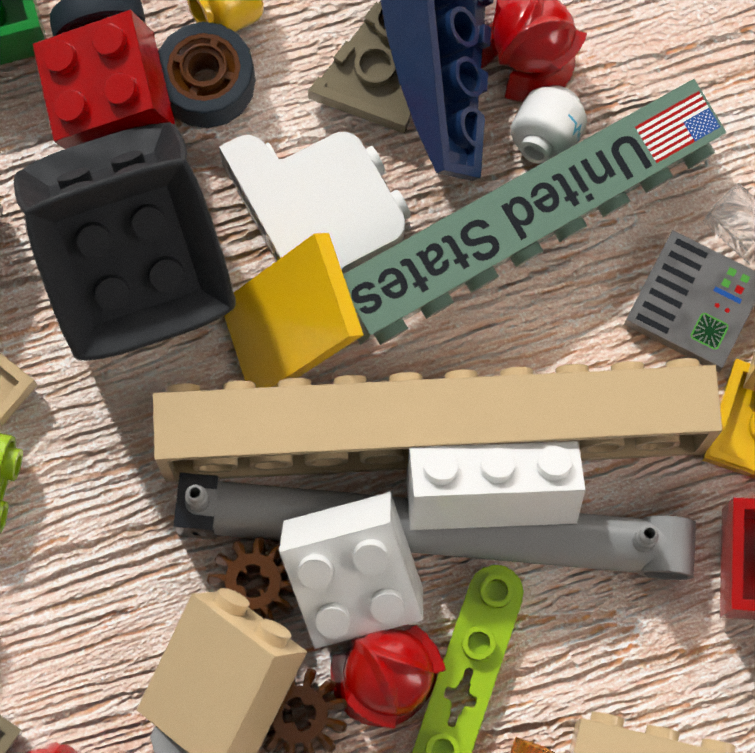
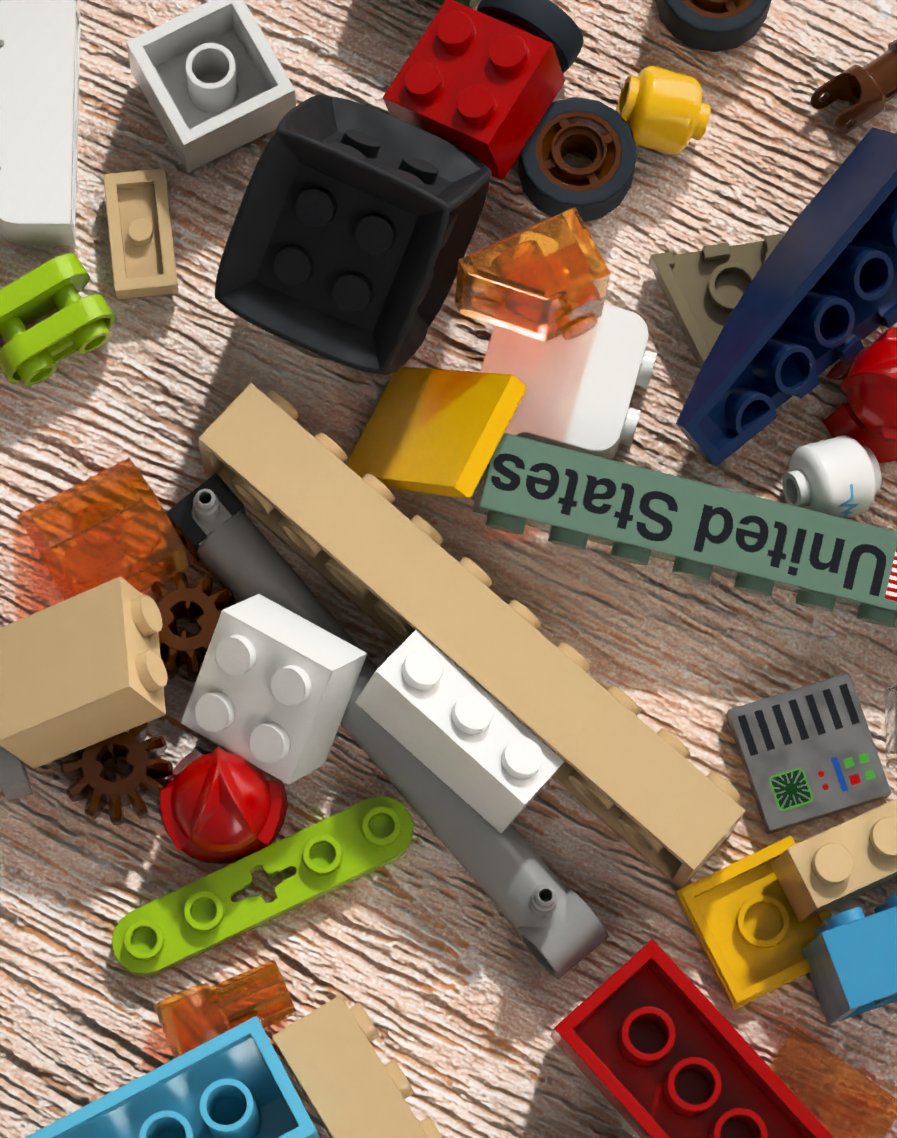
camera: 40 degrees right, 0 degrees up
(144, 579) = (105, 532): none -> clear orange slope
(268, 162) = (537, 280): none -> clear orange slope

